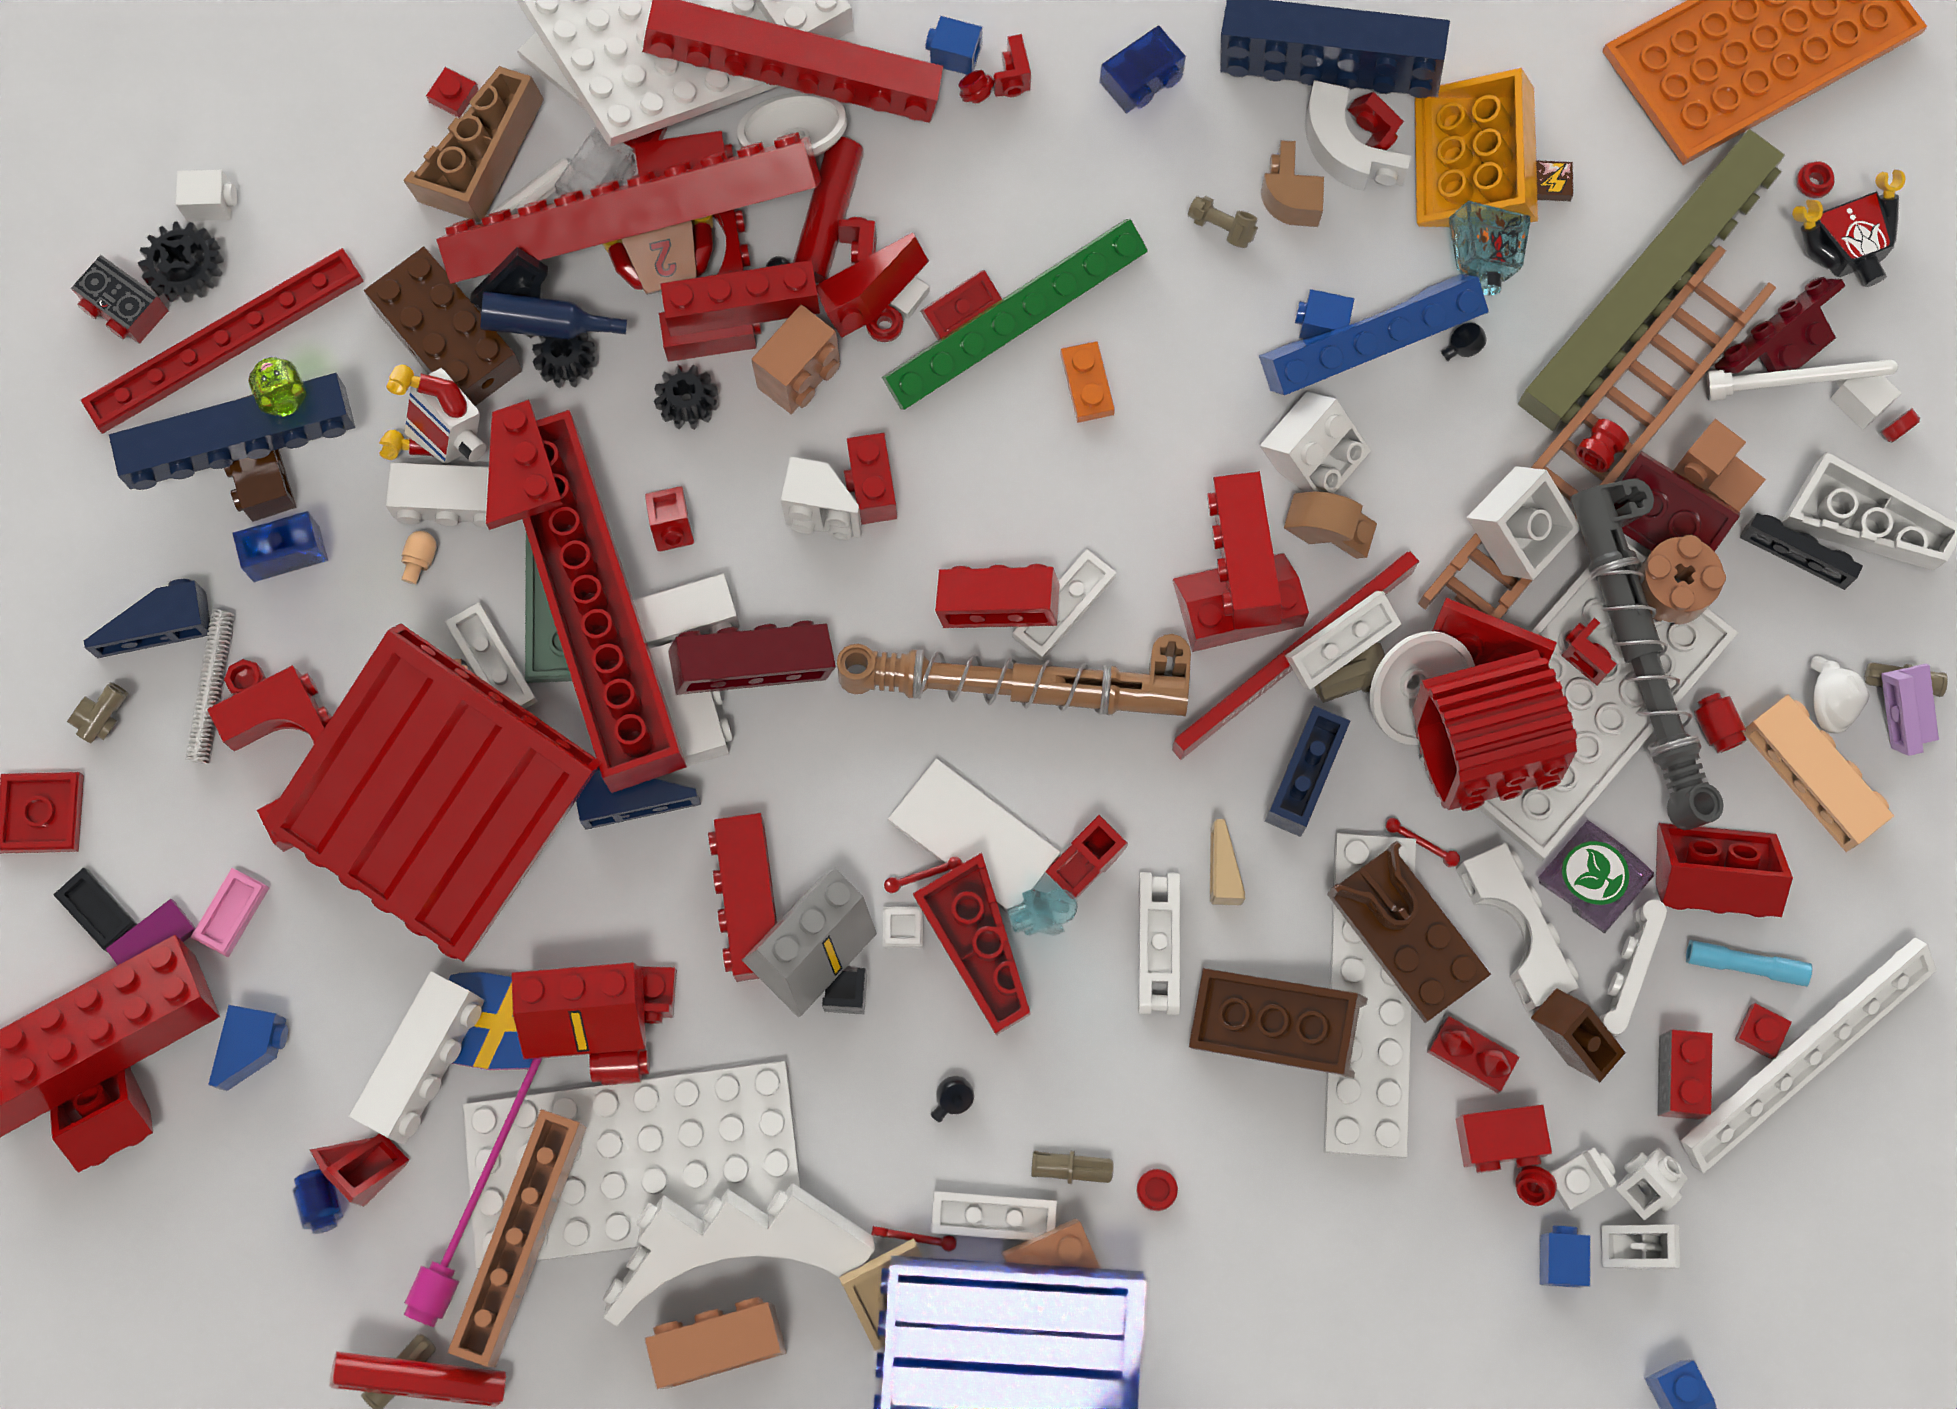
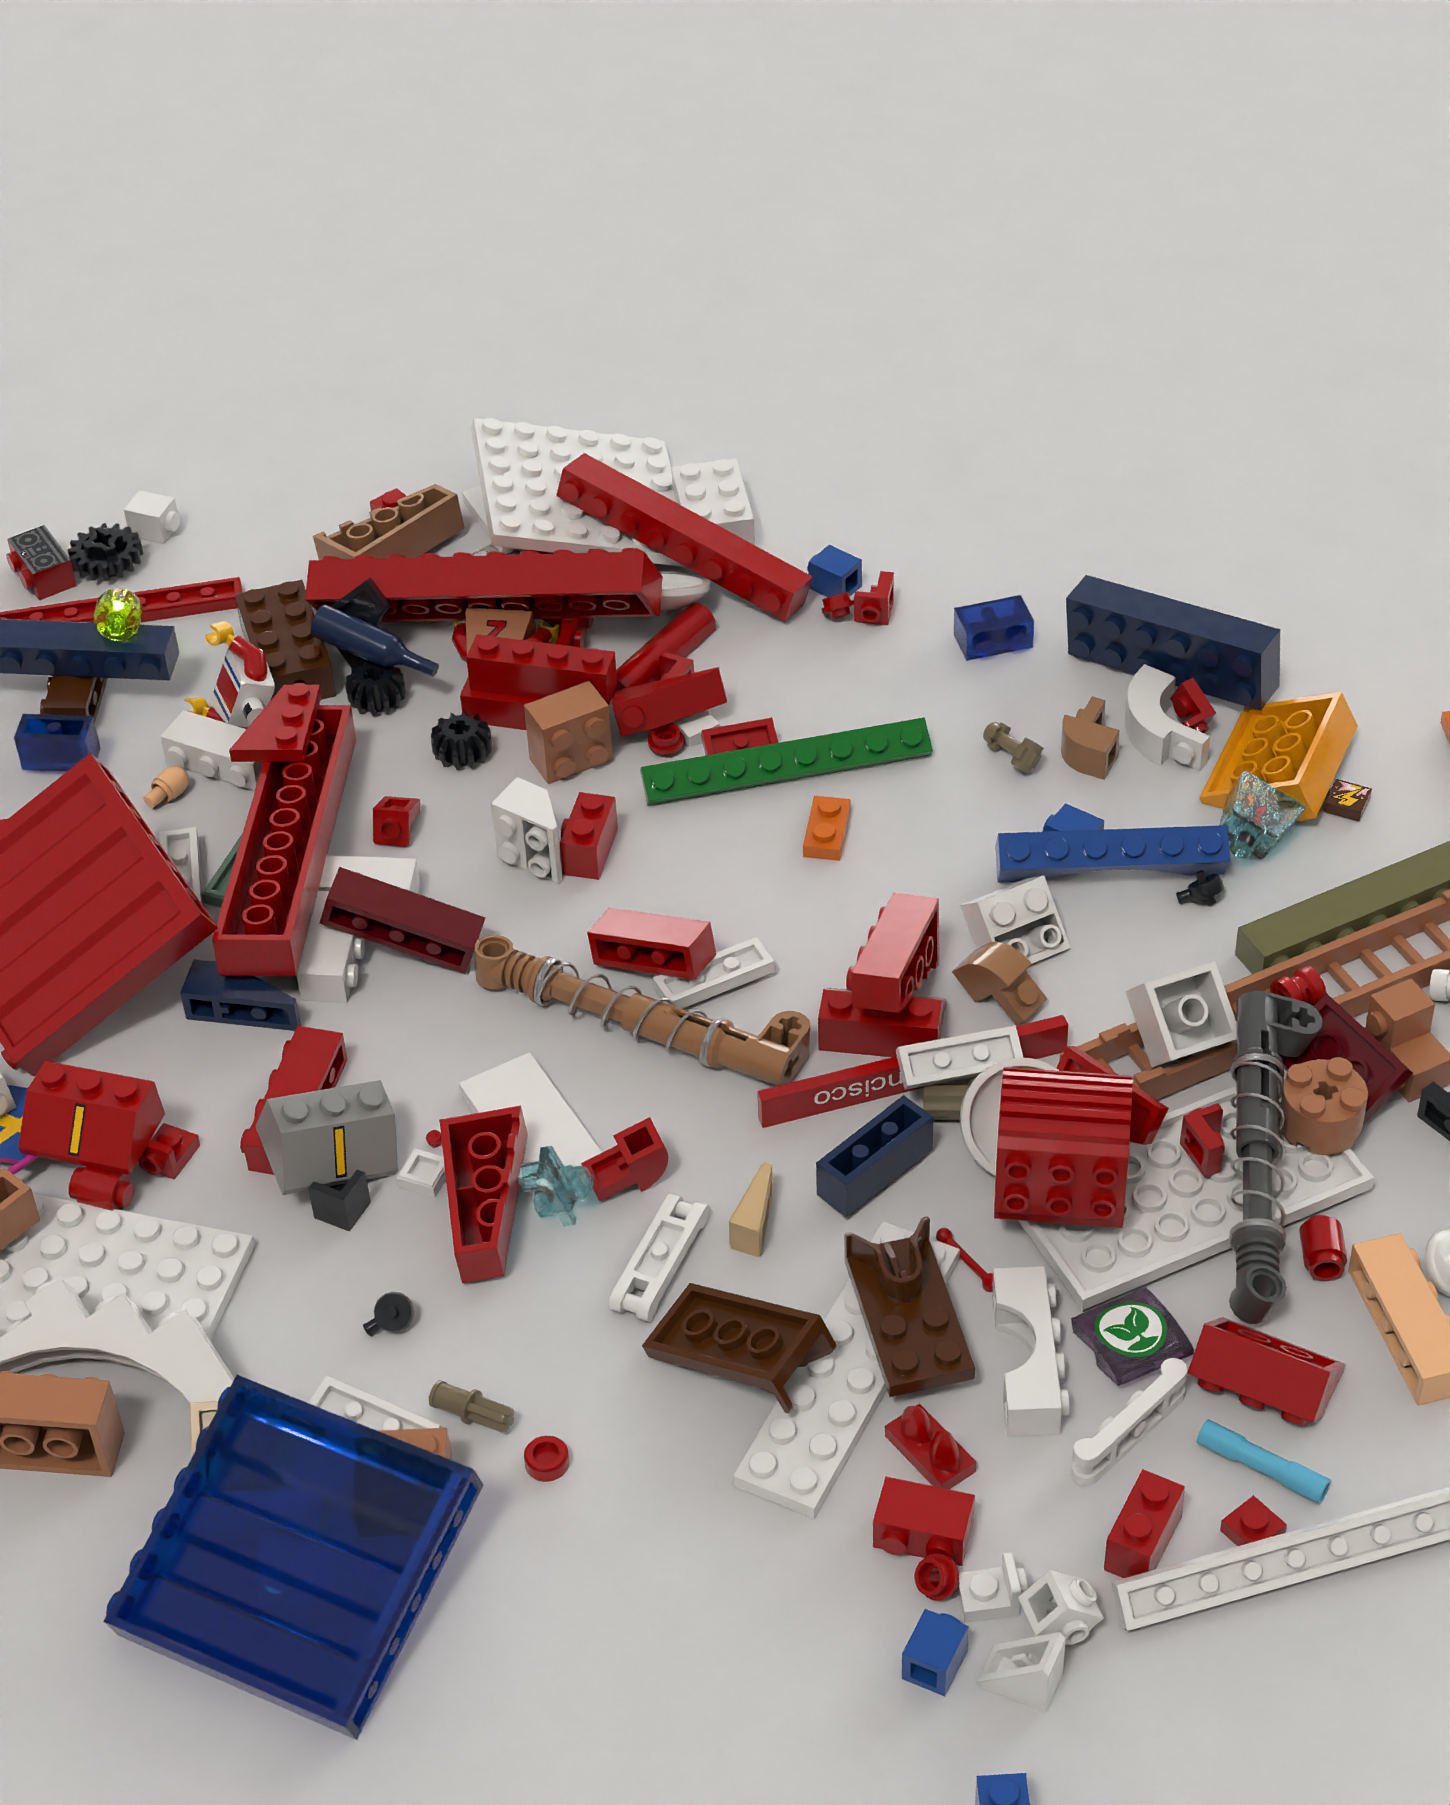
camera: 25 degrees right, 30 degrees down
(1578, 1035) = (1040, 1444): reddish brown brick -> none

